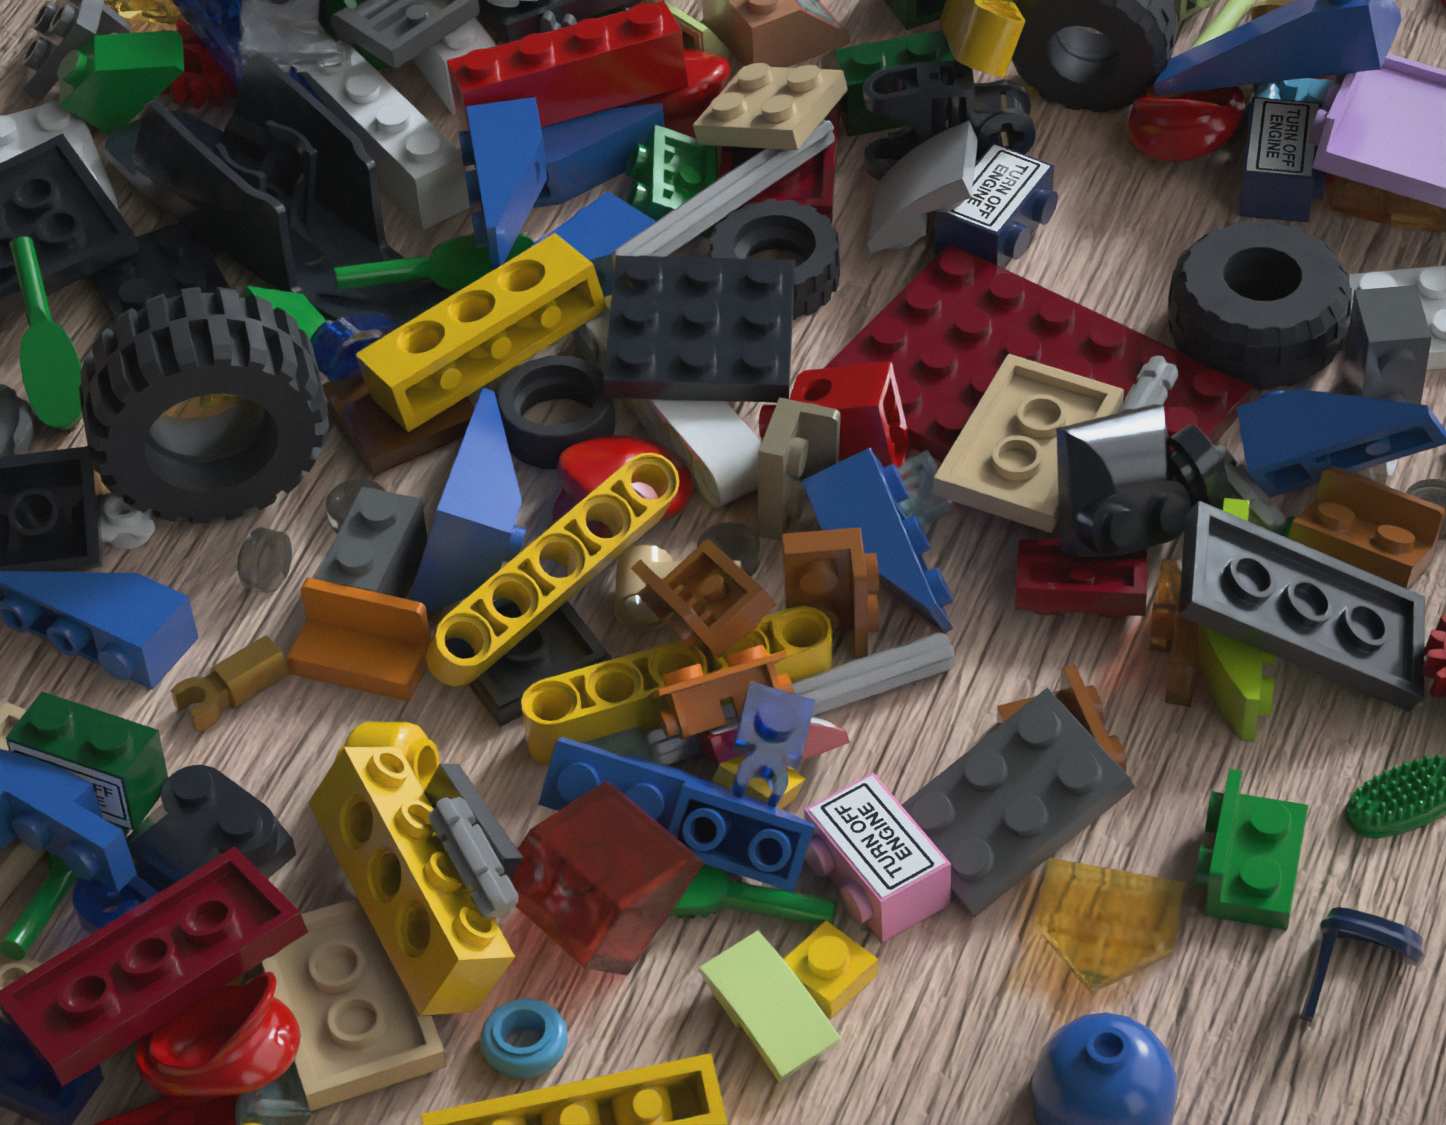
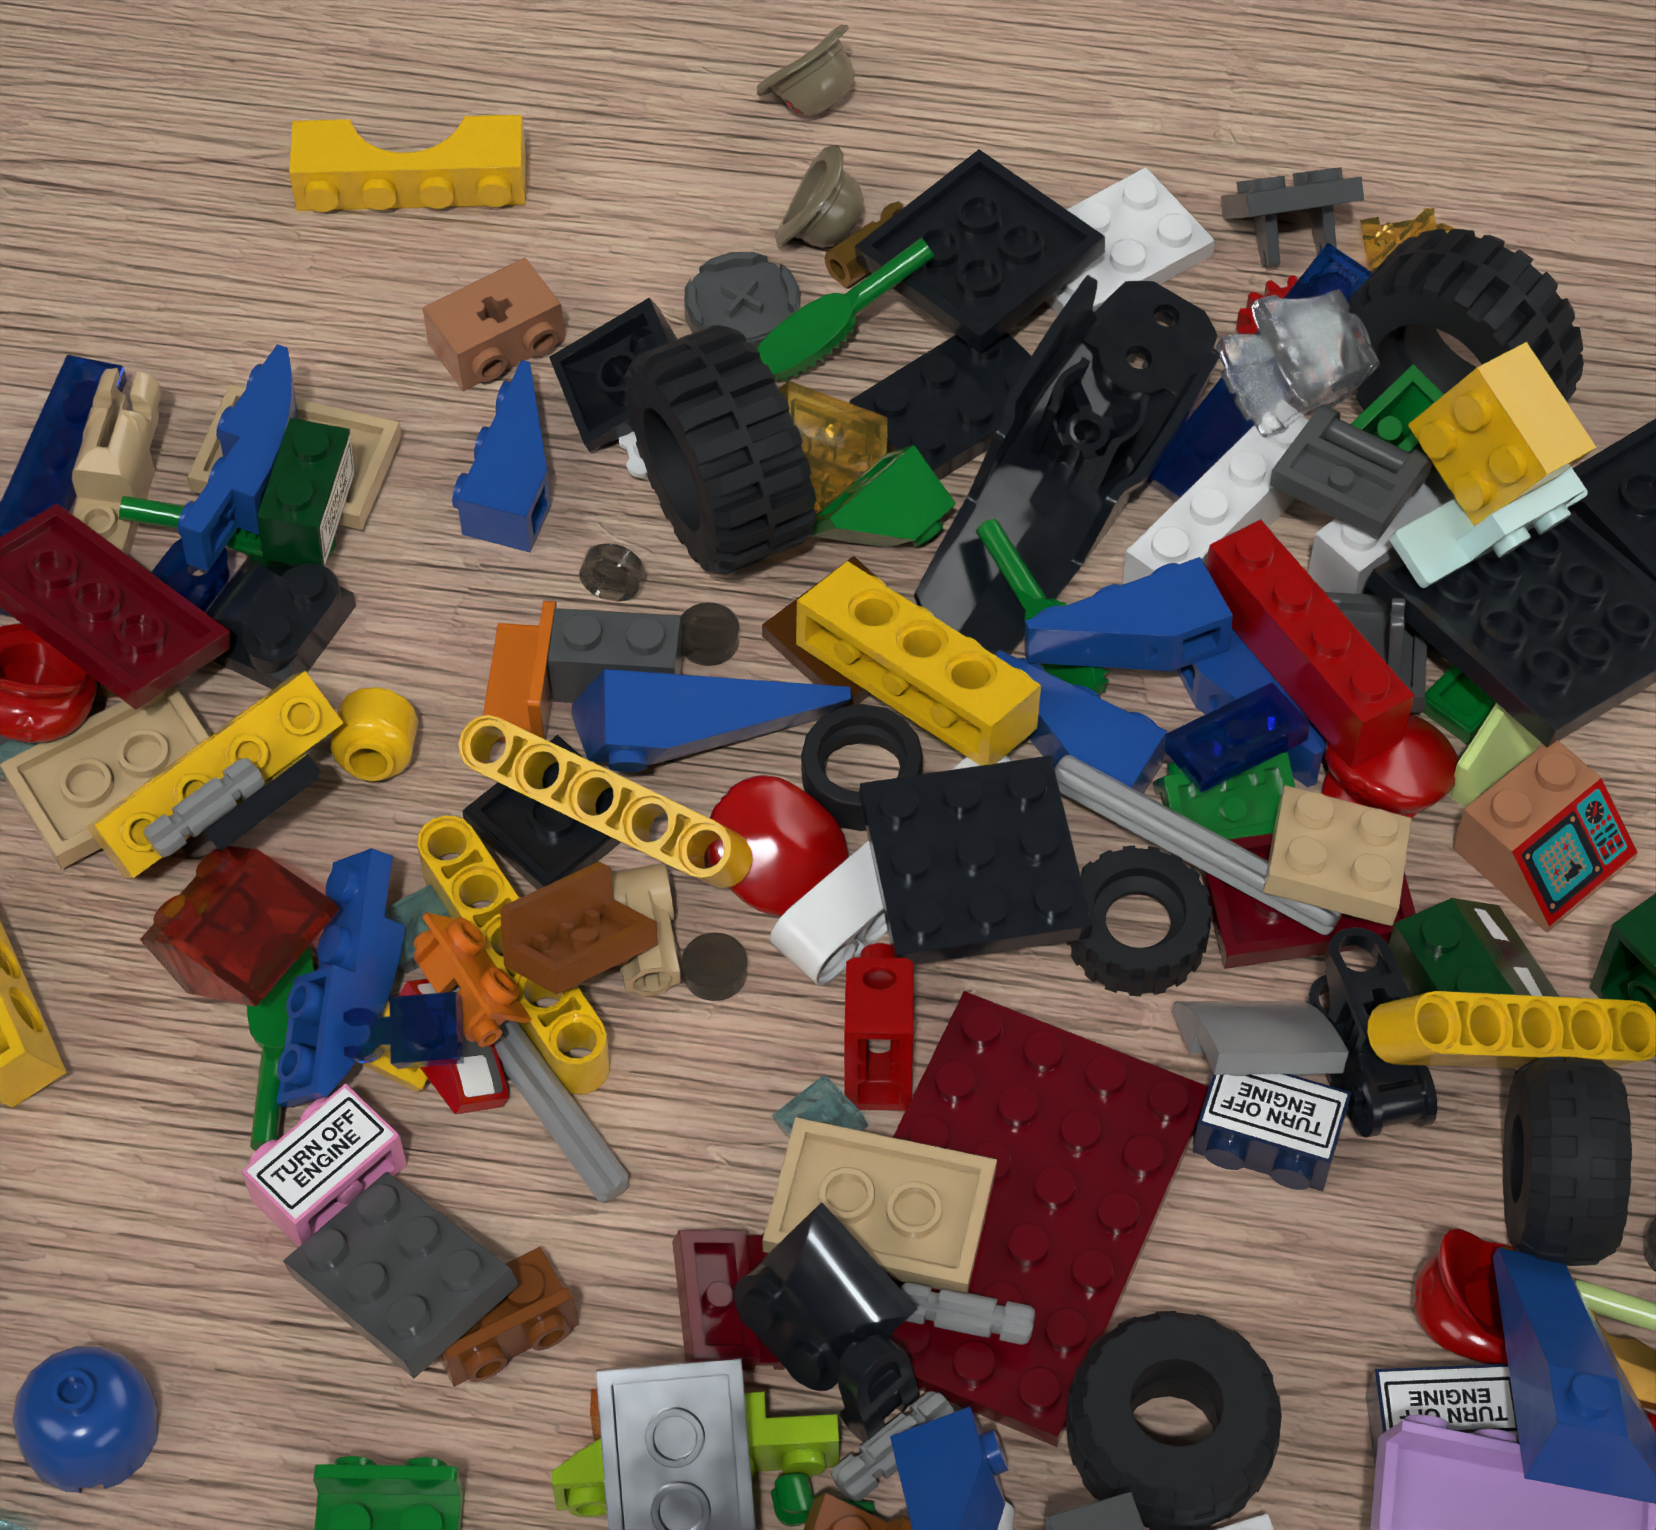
camera: 75 degrees right, 10 degrees up
(118, 75) = (1222, 258): green slope -> none
(231, 682) = (465, 589): pearl gold bar -> none
(340, 340) = (851, 541): clear blue plate -> none
(527, 1061) = (100, 942): dark azure piece -> none
(640, 139) = (1236, 737): none -> clear blue plate
(769, 1005) = (130, 1114): yellowish green slope -> none
(795, 446) = (795, 980): dark tan bracket -> none
(832, 967) = (203, 1156): yellow plate -> none
(835, 577) = (632, 1071): dark orange bracket -> none
(869, 497) = (729, 1092): blue slope -> none
(1108, 919) = (290, 1393): clear yellow slope -> none

